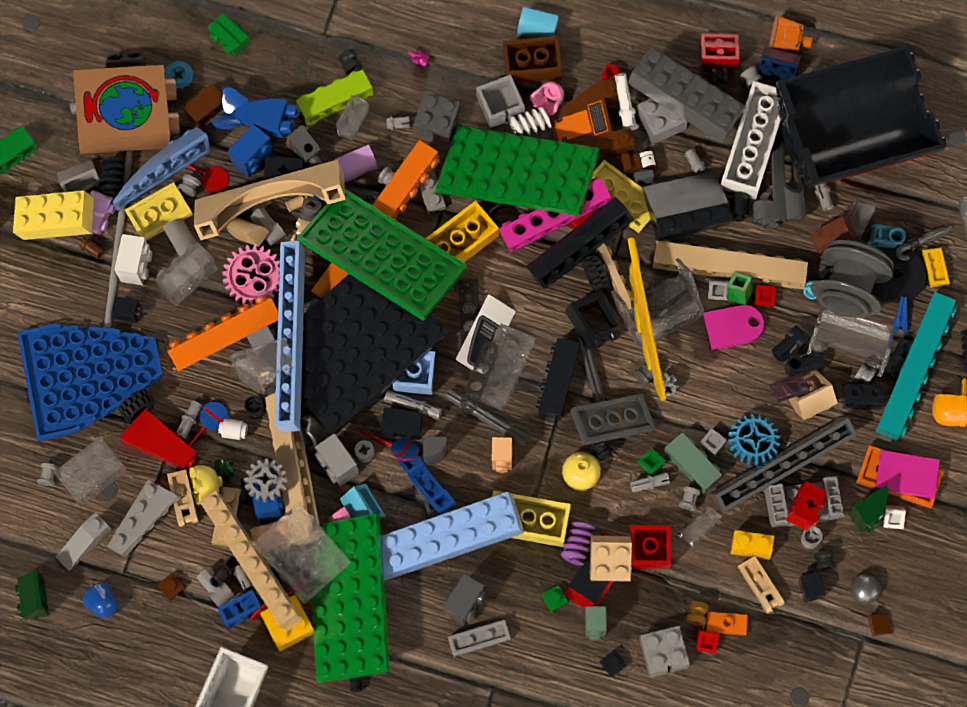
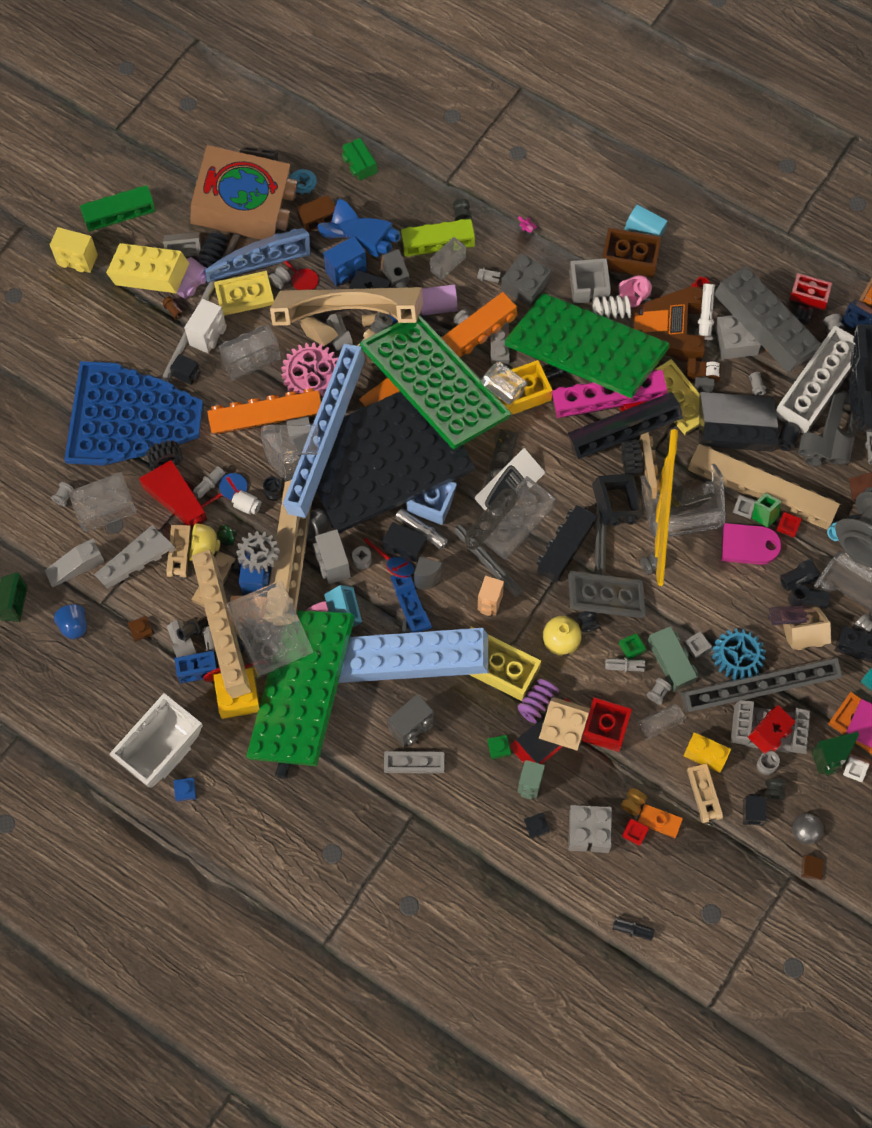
camera: 15 degrees right, 5 degrees down
(179, 235) = (255, 315): light grey brick -> none
(450, 236) = (504, 383): none -> clear brick
(669, 384) = (670, 579): light grey gear -> none

